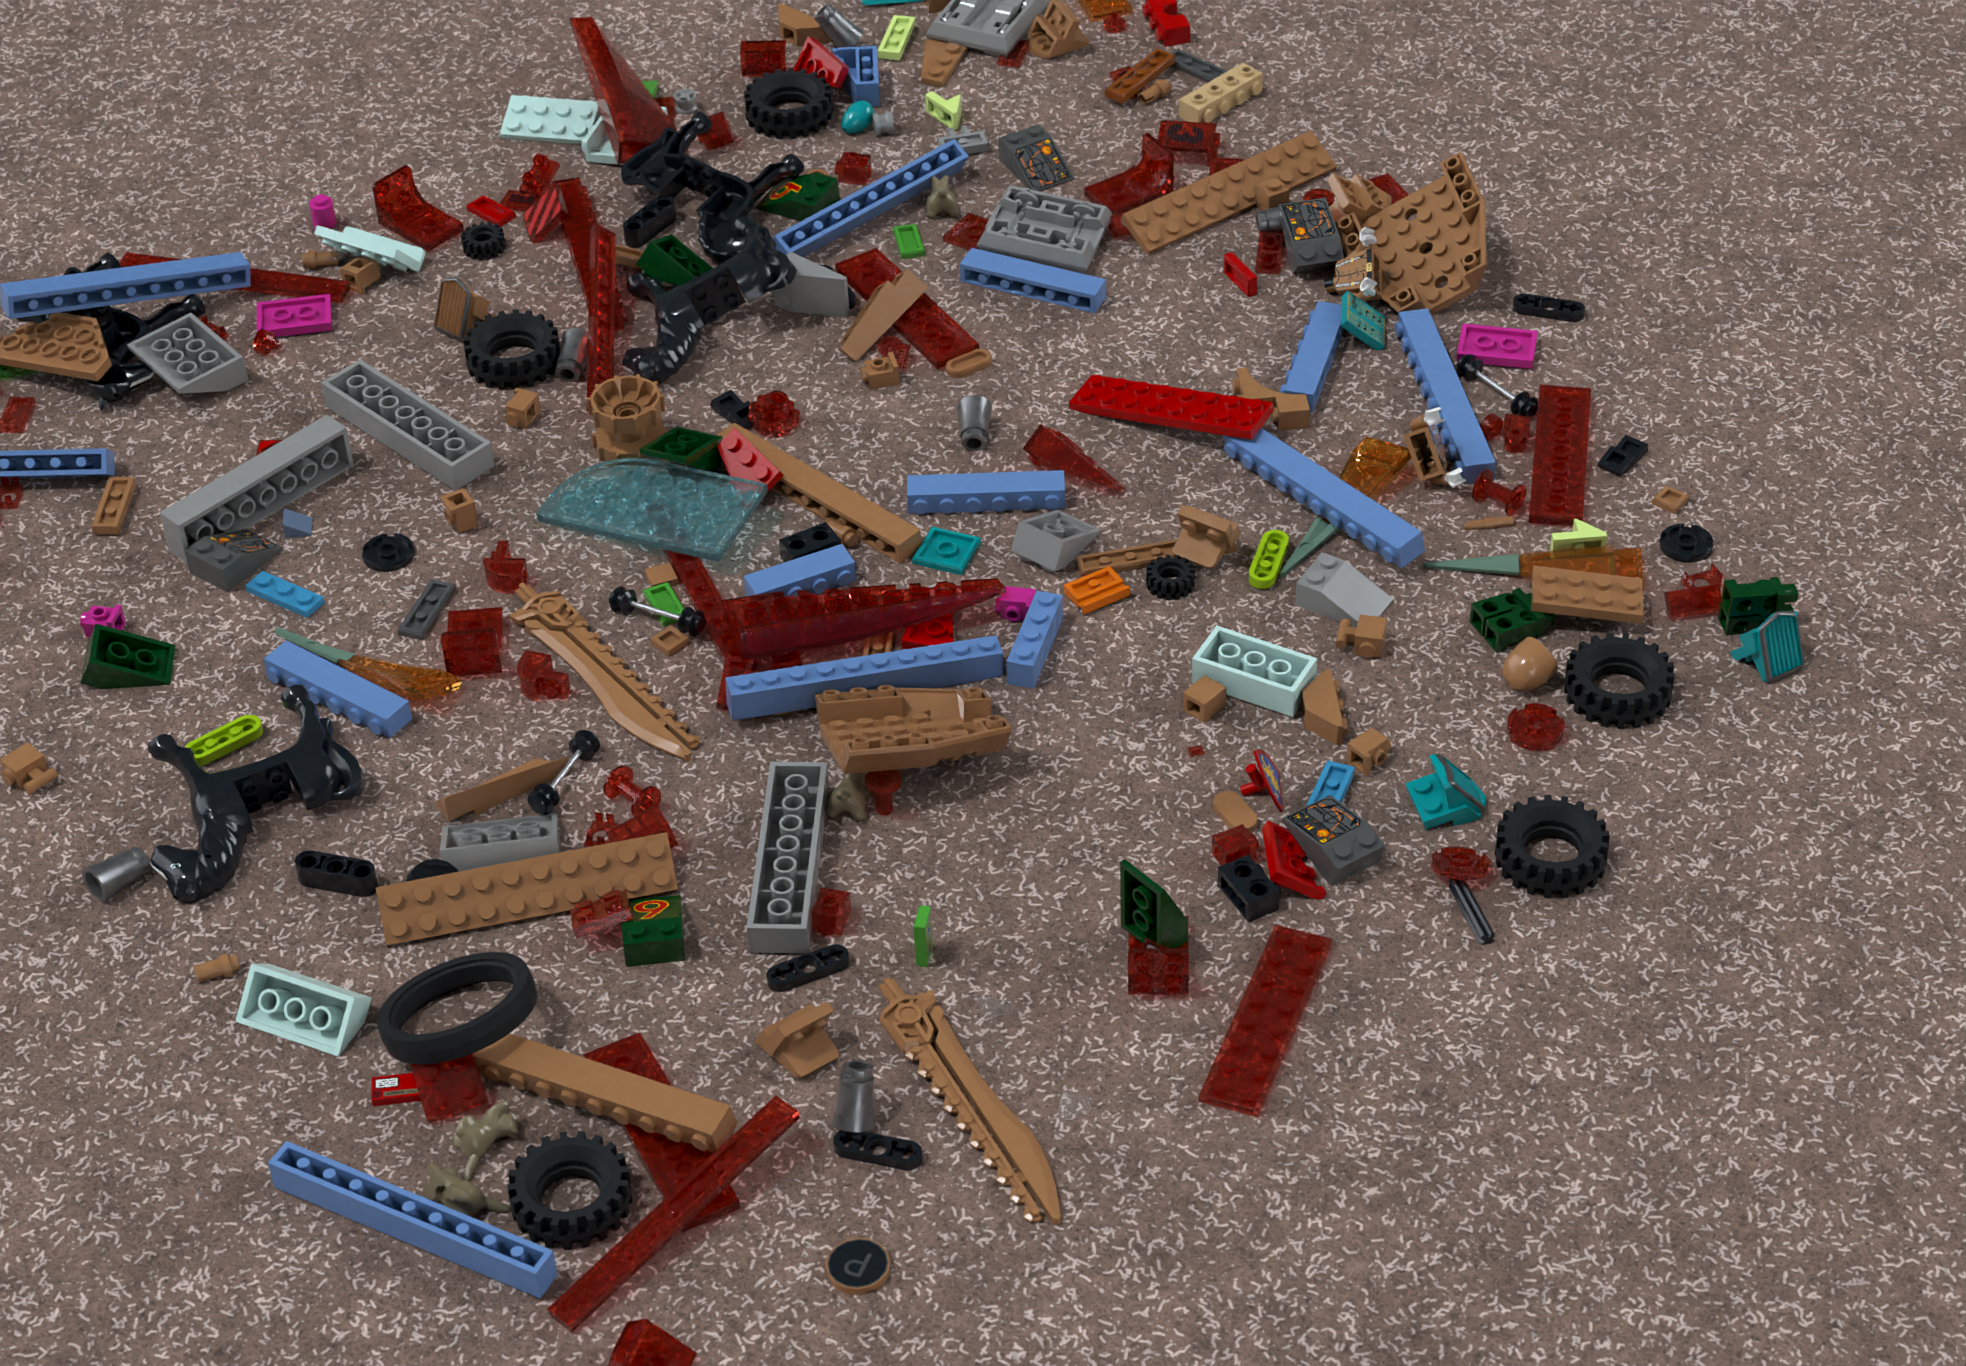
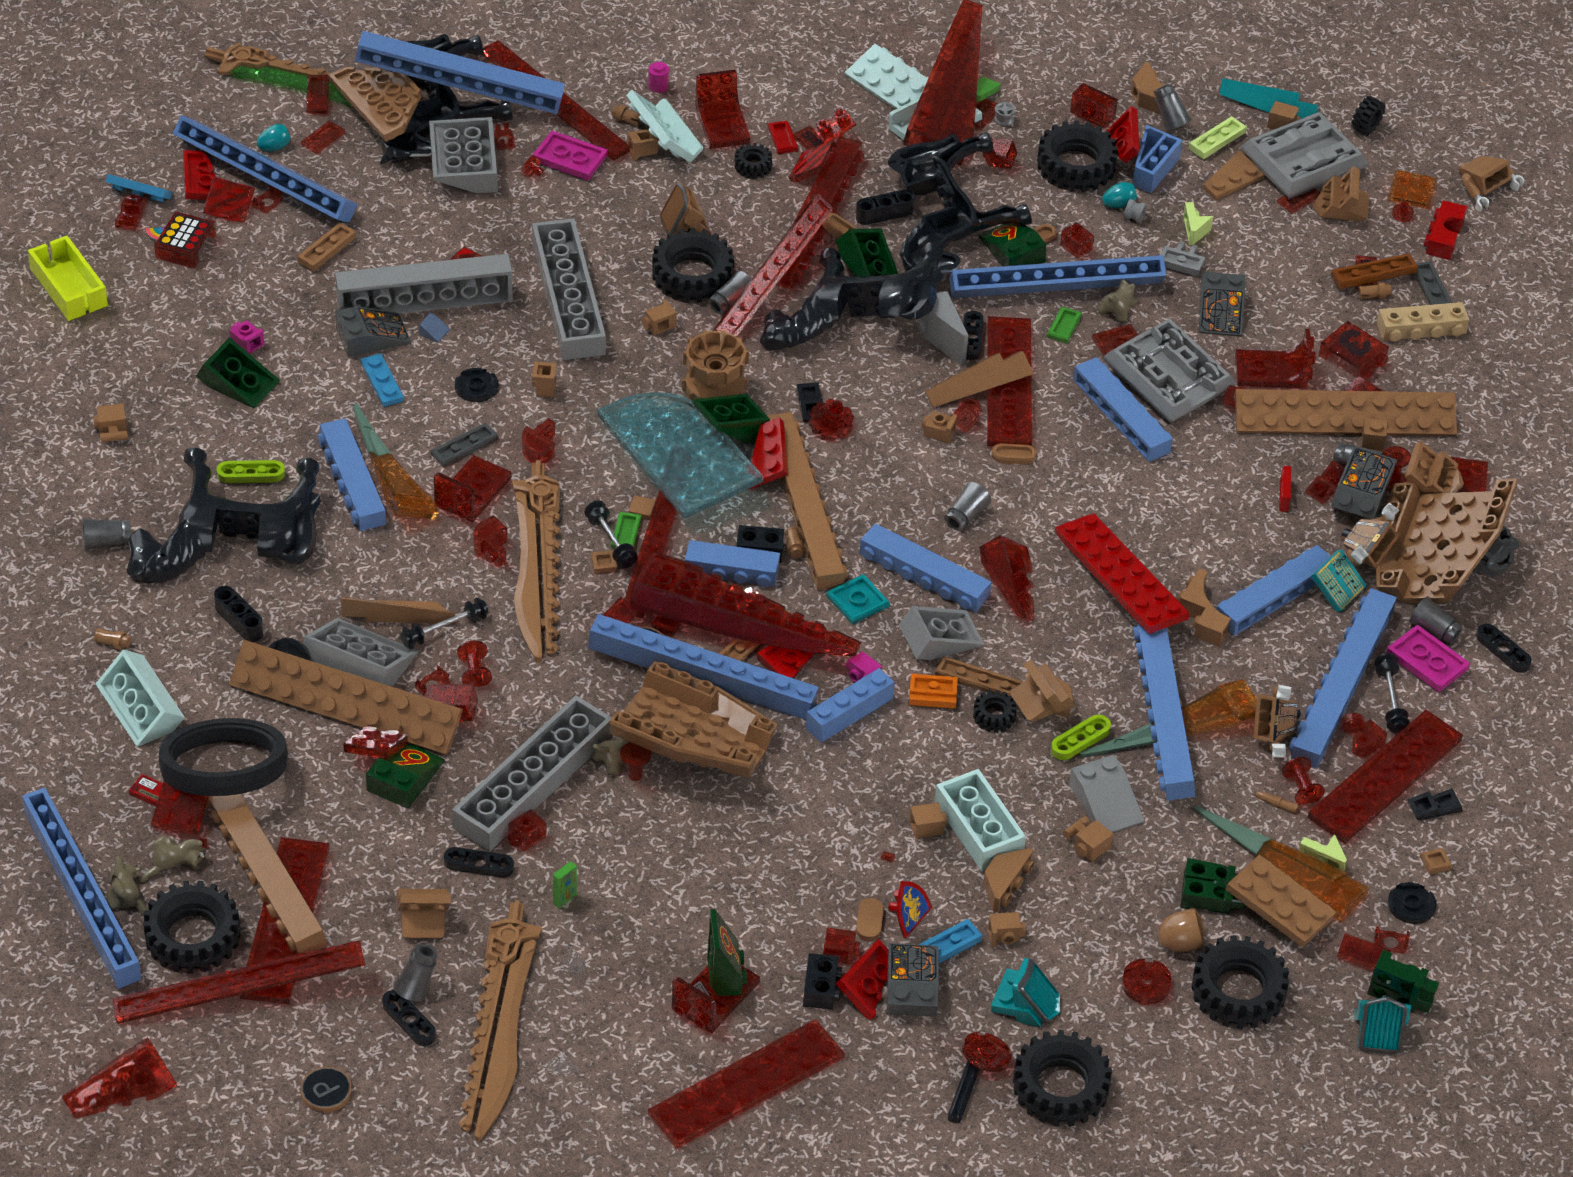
camera: 30 degrees right, 5 degrees up
(1475, 312) = (1435, 621): none -> flat silver plant

